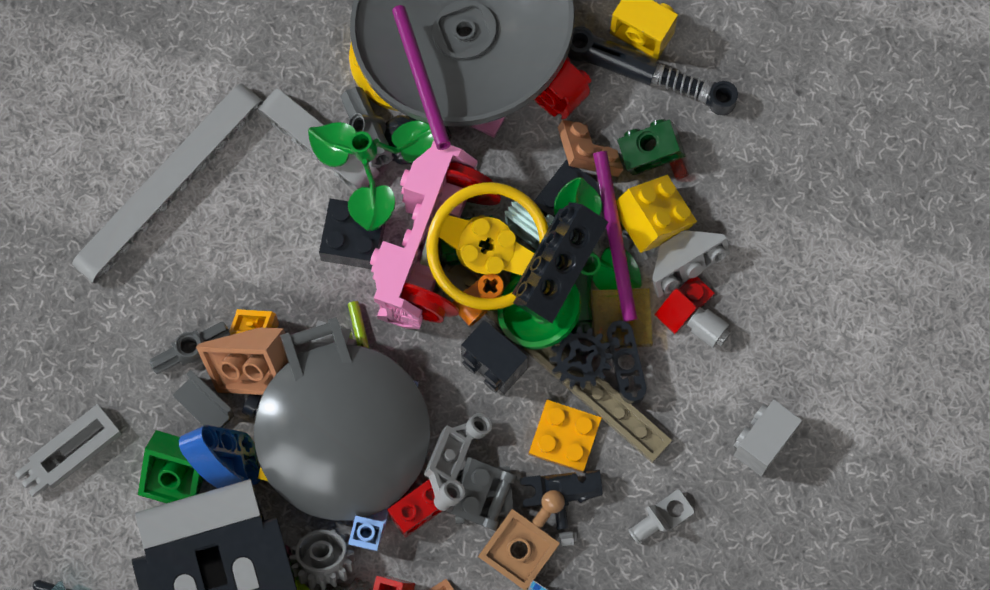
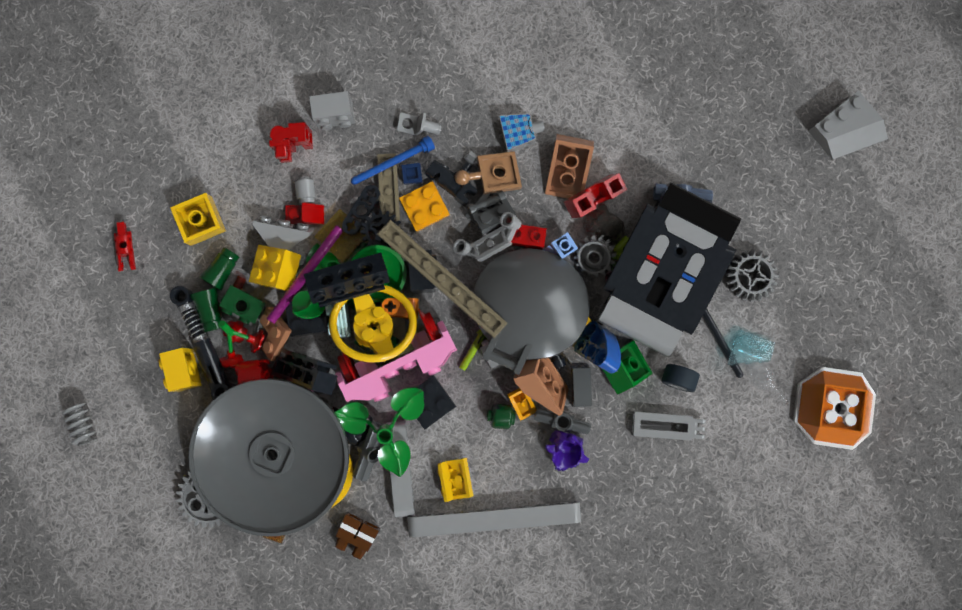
camera: 135 degrees left, 10 degrees up
(101, 512) = (680, 378): none -> black wheel
(157, 320) = (566, 450): none -> dark purple hair
(249, 182) = (455, 479): none -> yellow bracket
(261, 291) = (501, 416): none -> dark green head
(310, 30) = (348, 531): none -> reddish brown hips
(421, 77) = (320, 444): magenta piece -> none
(461, 360) = (442, 279): none -> dark tan tile
(510, 135) = (305, 371): none -> black brick
(613, 457) = (412, 173): none -> dark blue plate
(630, 116) = (237, 333): none -> red plant
(631, 500) = (425, 145): none -> blue piece
(685, 112) = (208, 308): none -> dark green plant
(712, 161) = (220, 269): none -> dark green plant
(782, 360) = (286, 139): none -> red hips
(787, 188) = (198, 219): none -> yellow brick
(845, 101) = (120, 238): none -> red hinge

